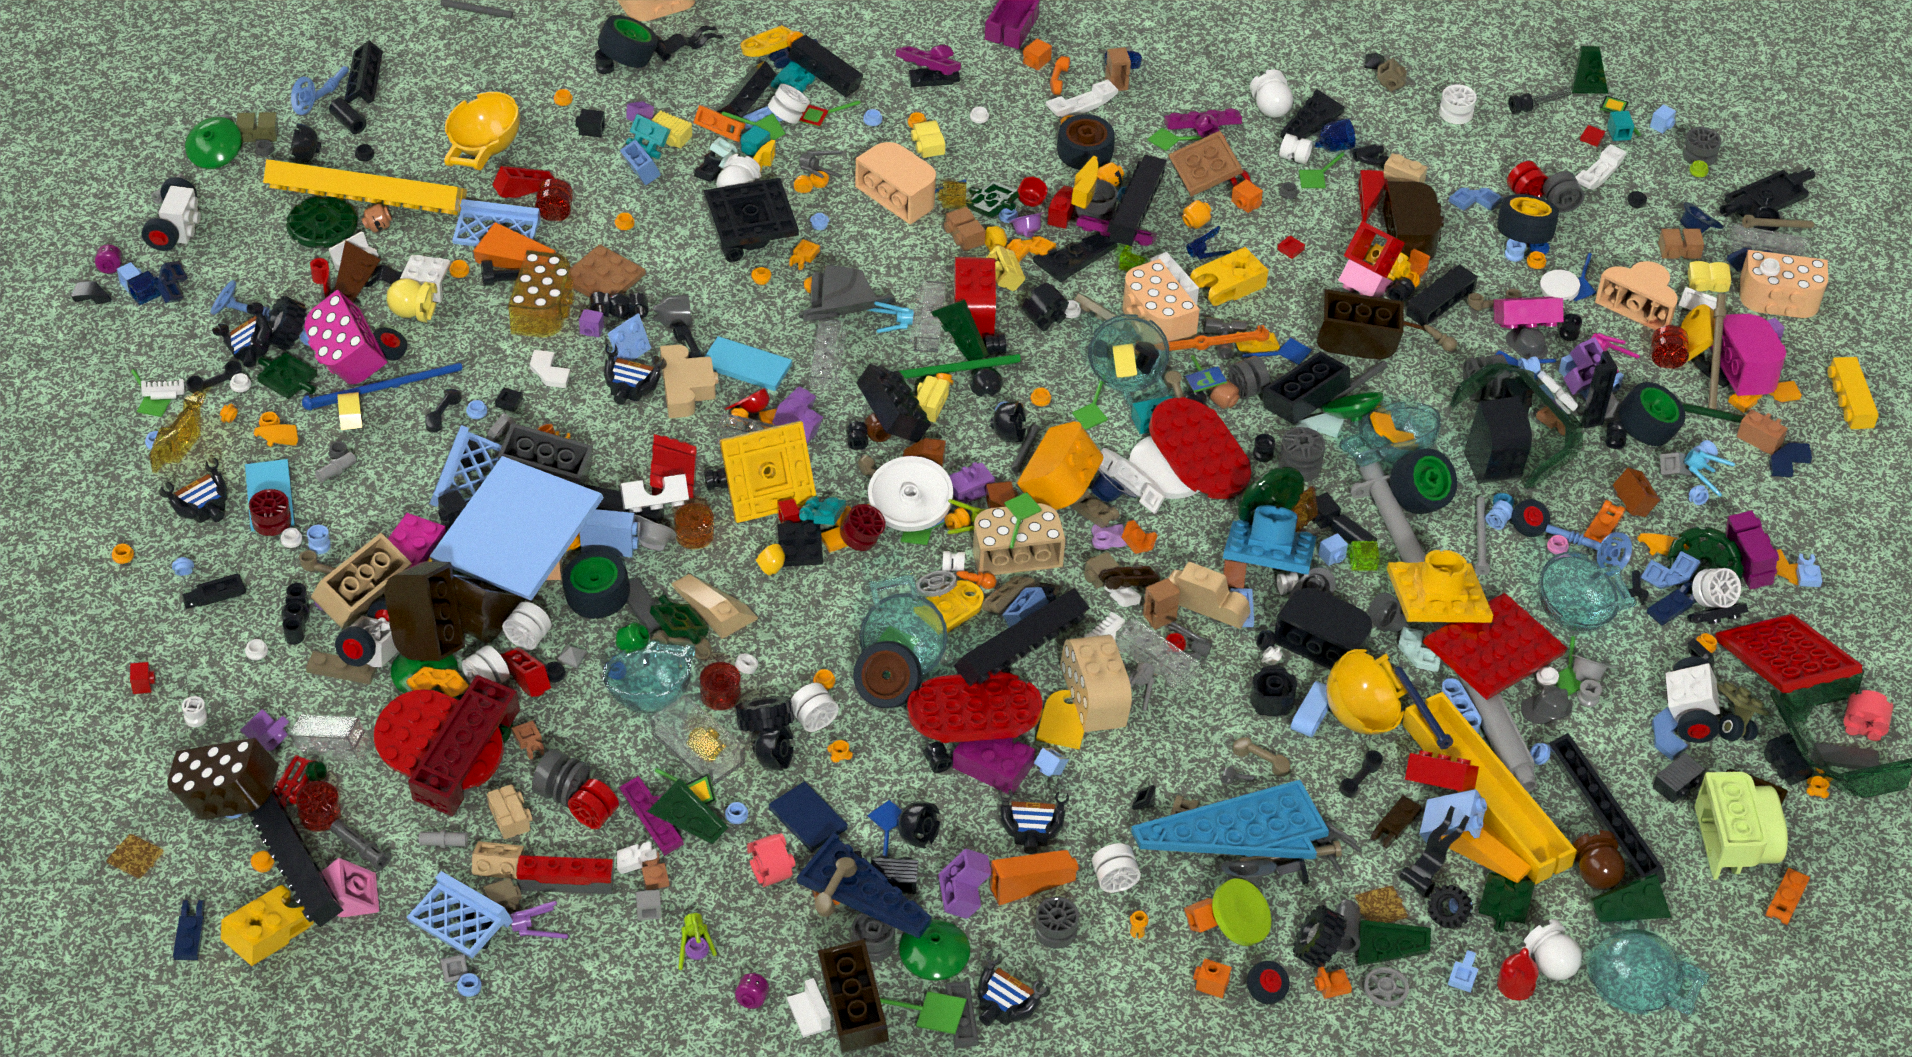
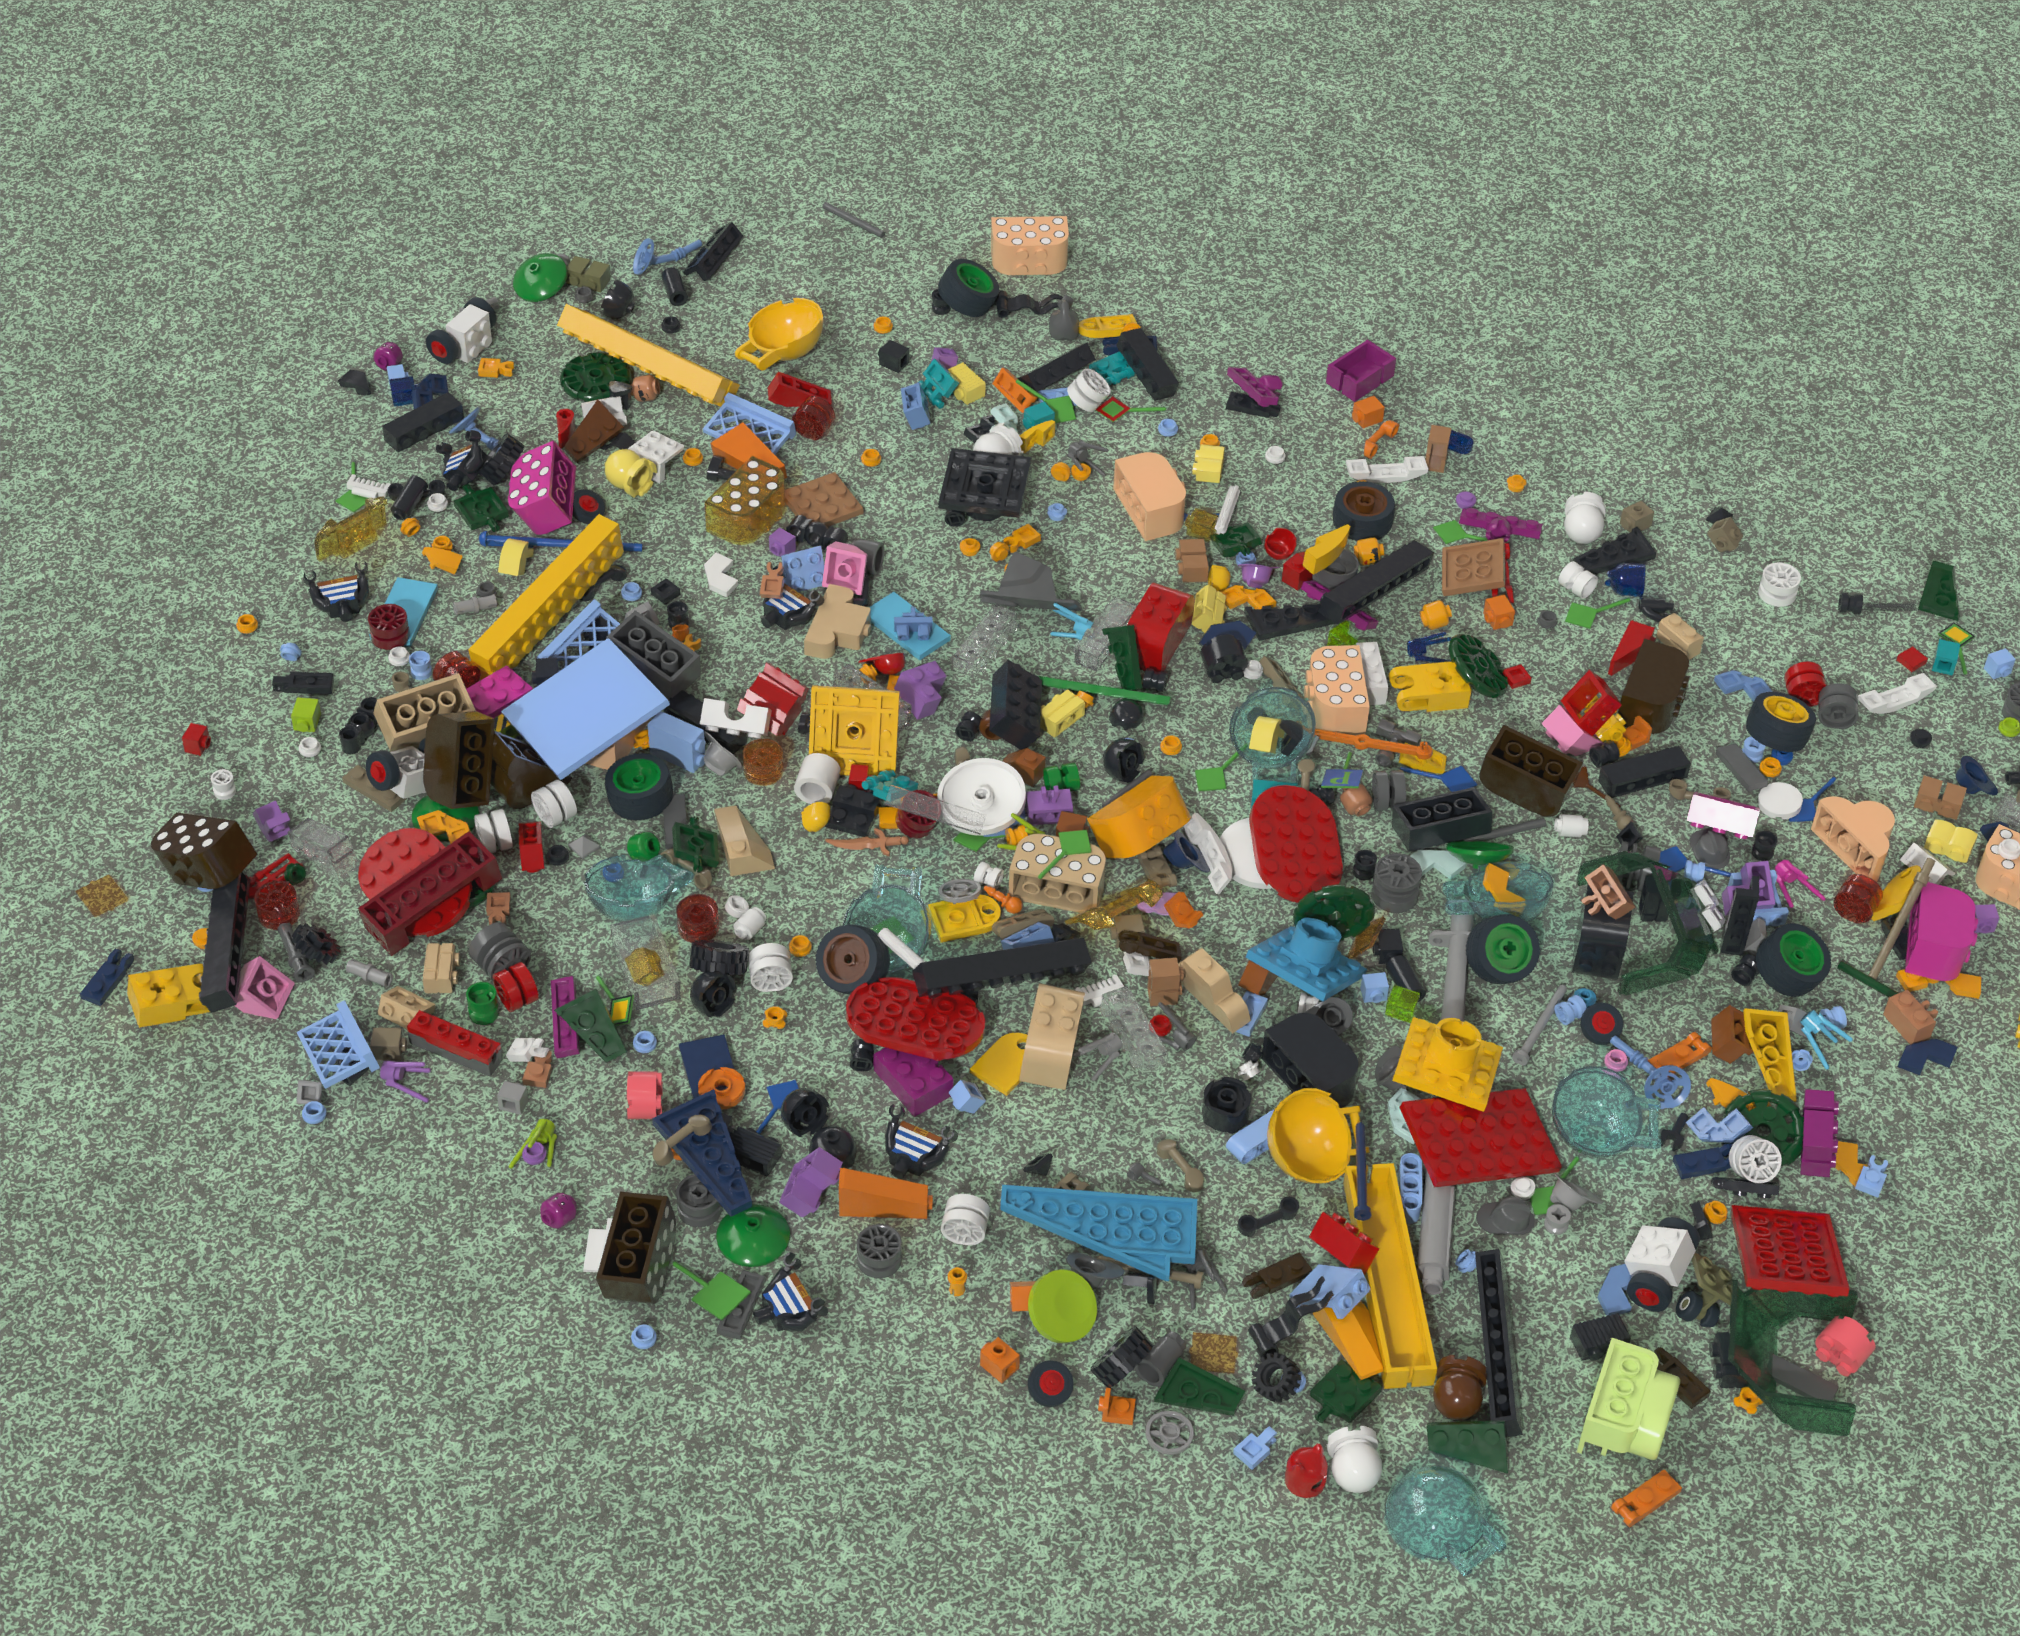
camera: 25 degrees right, 0 degrees up
(181, 311) = (423, 422): none -> black brick
(213, 385) = (409, 497): none -> black brick
(217, 241) = (493, 367): none -> light orange plate
(235, 620) = (306, 714): none -> lime brick
(357, 226) = (623, 390): none -> black tile
(359, 532) = (455, 663): none -> clear red wheel
(380, 829) = (316, 943): none -> black gear
(411, 440) = (548, 597): none -> yellow piece
(534, 416) = (677, 613): none -> black wheel
(570, 829) = (482, 1003): none -> green wheel
(612, 361) = (772, 584): none -> nougat plate
(669, 326) = (845, 567): none -> bright pink slope
(728, 48) = (1064, 322): none -> dark grey piece
(754, 525) = (817, 778): none -> white piece
(756, 357) = (913, 623): none -> medium blue hips
(768, 674) = (749, 923): none -> white brick
(791, 271) = (999, 551): none -> light orange plate
(826, 568) = (867, 842): none -> nougat piece
(831, 818) = (723, 1076): none -> orange tile
(881, 517) = (935, 809): none -> clear piece
(931, 651) = (900, 948): none -> white axle
(956, 840) = (837, 1143): none -> black cylinder
(966, 454) = (1065, 777): none -> green wheel
(968, 174) = (1227, 509): none -> white axle
(1026, 285) = (1235, 628): none -> dark blue tile
(1089, 542) = (1100, 917): none -> clear yellow piece
(1162, 108) = (1465, 500): none -> medium lavender plate
(1195, 81) = (1516, 483): none -> light orange plate
(1260, 247) = (1478, 665): none -> dark green plate
(1311, 80) = (1636, 515): none -> dark tan brick
(1410, 359) = (1571, 825): none -> white brick
(1460, 353) = (1629, 834): none -> black slope
(1505, 402) = (1607, 893): none -> nougat brick
(1515, 267) = (1741, 767): none -> dark grey tile
(1676, 493) = (1771, 1044): none -> yellow wedge

